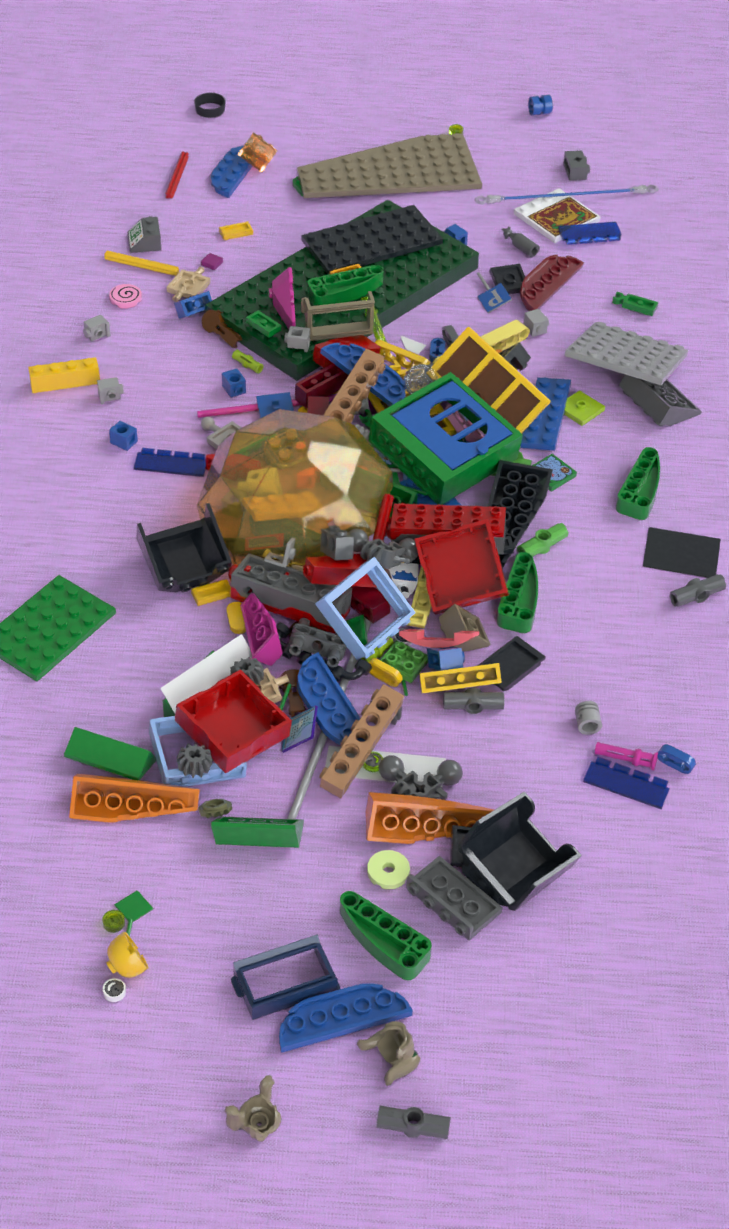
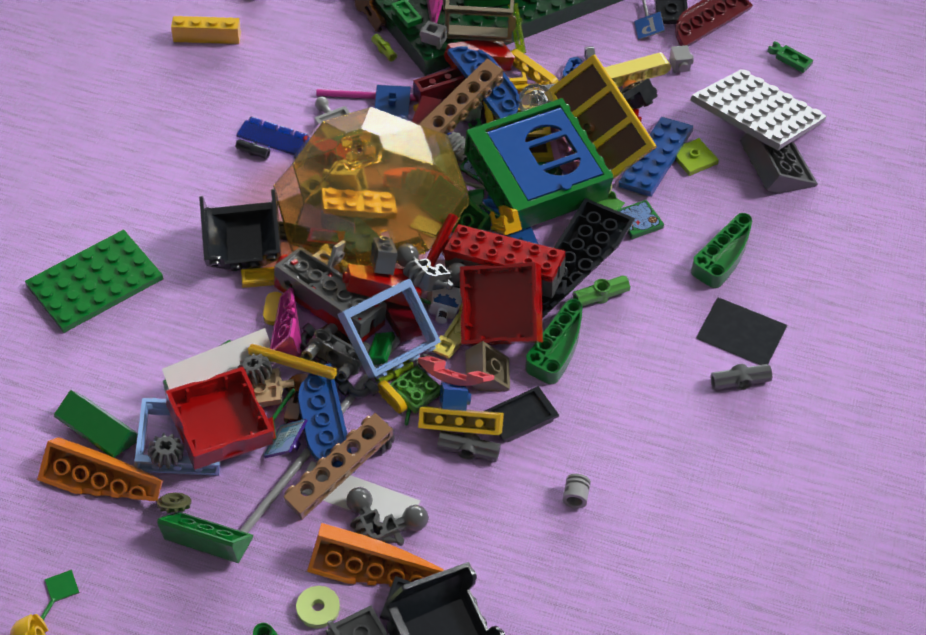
camera: 15 degrees right, 5 degrees up
(109, 389) = (242, 52): light grey brick -> none
(113, 921) = (36, 596): clear neon green tile -> none
(123, 435) = (237, 101): blue brick -> none
(156, 477) = (253, 148): none -> black axle
(233, 383) = (361, 67): blue brick -> none
(283, 657) = (293, 361): none -> yellow axle
(372, 762) = (344, 488): tile -> none
(412, 345) = (551, 60): white sticker -> none
(437, 492) = (507, 222): none -> yellow hinge
(601, 749) = (610, 544): dark pink pin -> none
(623, 783) = (596, 575): clear blue windscreen -> none
(676, 759) = (651, 556): blue beam -> none

